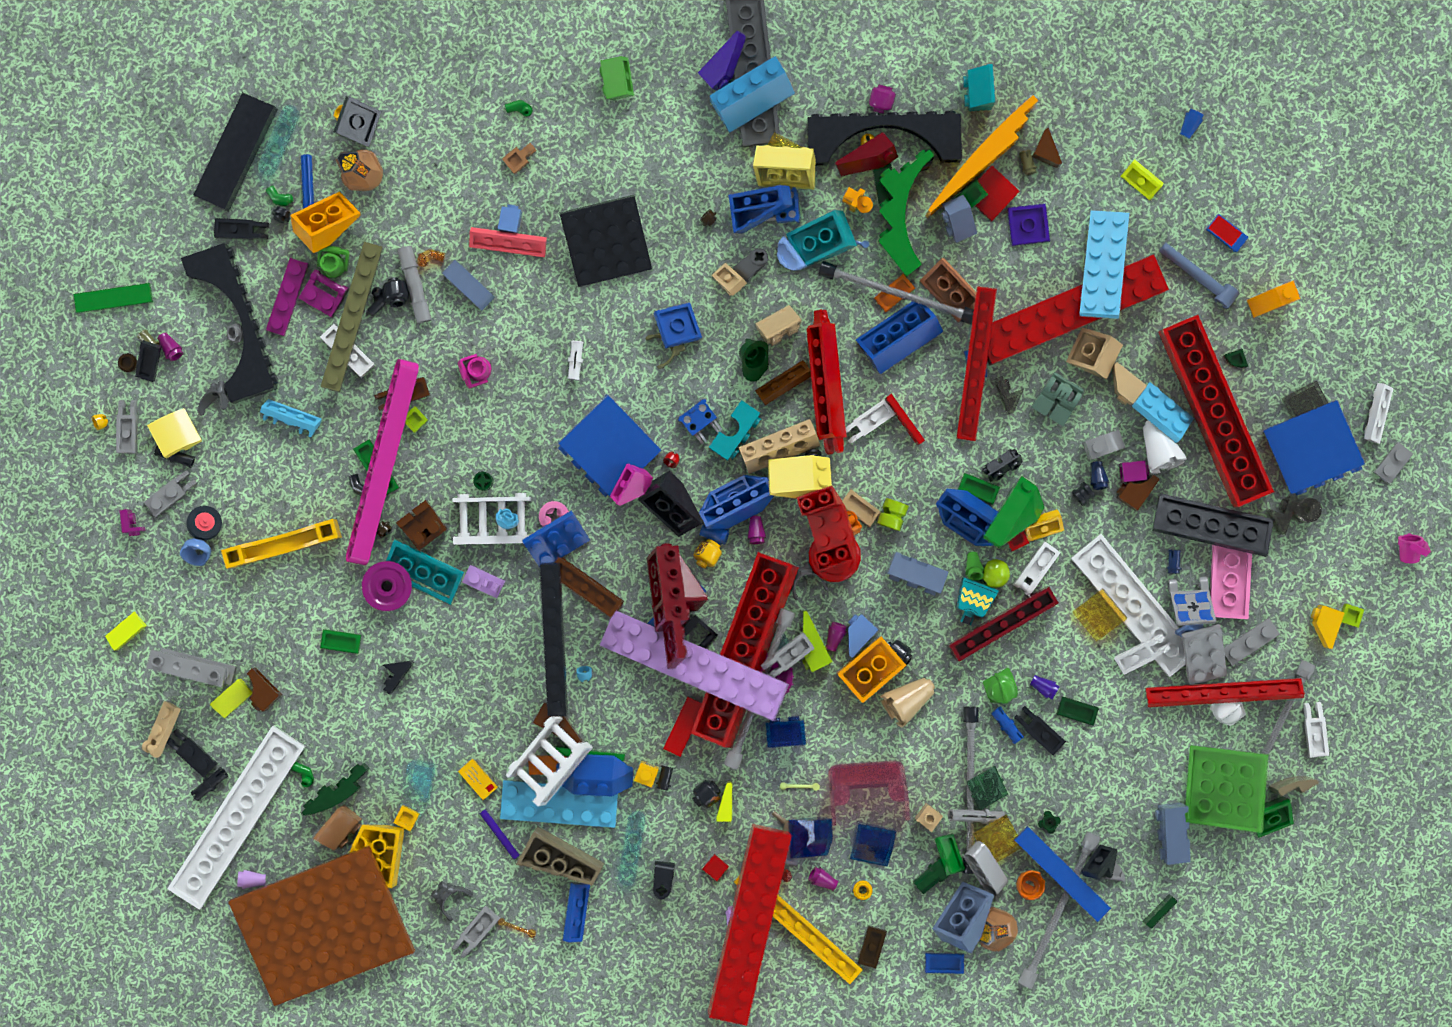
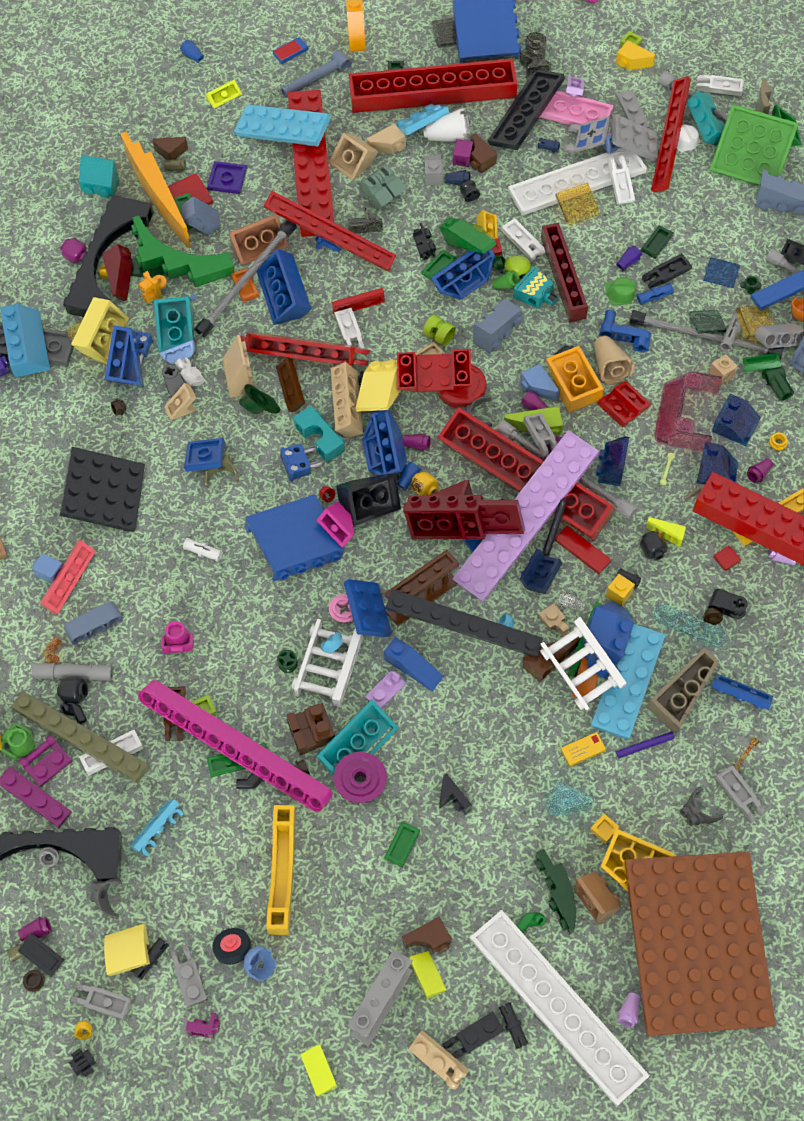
camera: 75 degrees left, 25 degrees down
(71, 432) = (82, 1062): none -> black gear
(513, 599) = (412, 663): none -> blue slope
(602, 717) = (554, 618): none -> tan plate
(622, 728) = (569, 602): none -> clear cone
(644, 692) = (540, 572): none -> dark blue bracket
(646, 868) = (713, 616): none -> dark brown plate
(692, 694) = (554, 527): none -> black bar
(766, 277) = (190, 374): none -> white plate
(870, 730) = (630, 404): none -> red slope
(944, 724) = (637, 336): none -> blue beam
(998, 553) = (498, 263): none -> dark green plate
(1057, 788) = (721, 272): none -> clear blue piece
(1262, 569) = (574, 86): none -> lavender plate
(1266, 717) = (701, 107): none -> teal arch

